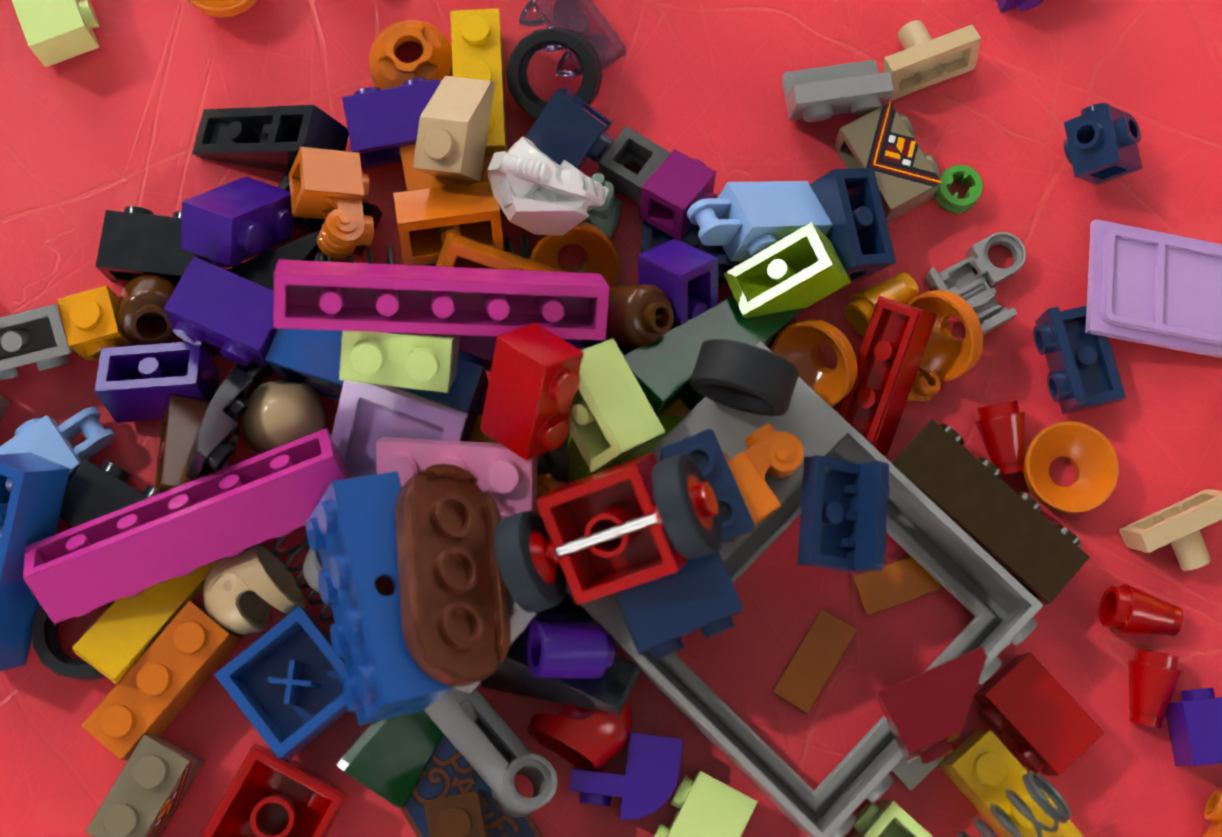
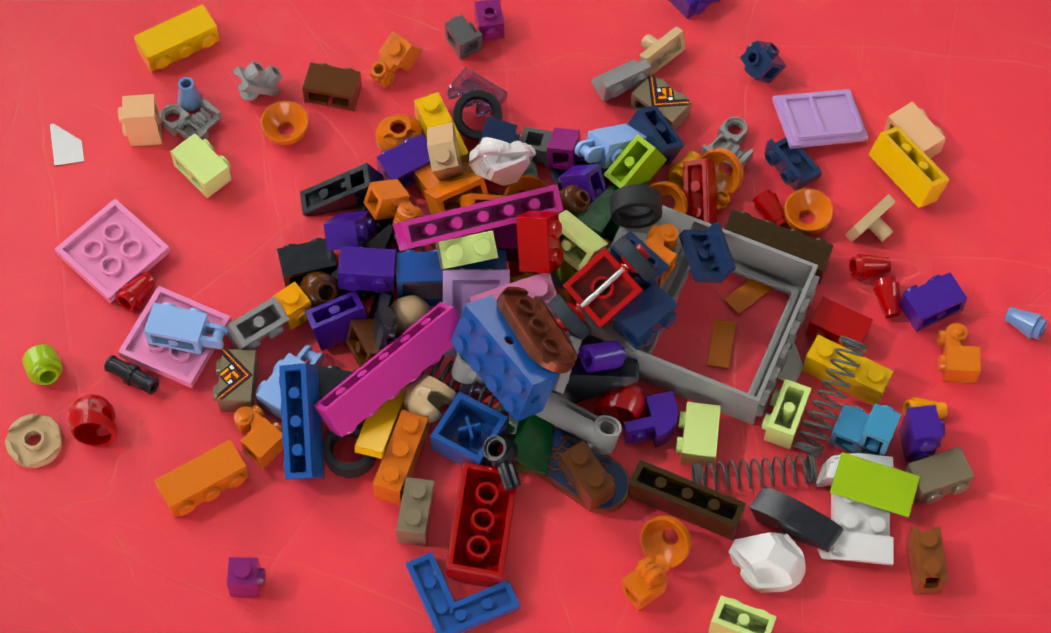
camera: 20 degrees left, 15 degrees down
(321, 761) = (505, 461): none -> black axle
(932, 706) = (782, 320): dark red slope -> none
(965, 175) = (701, 98): bright green bush -> none

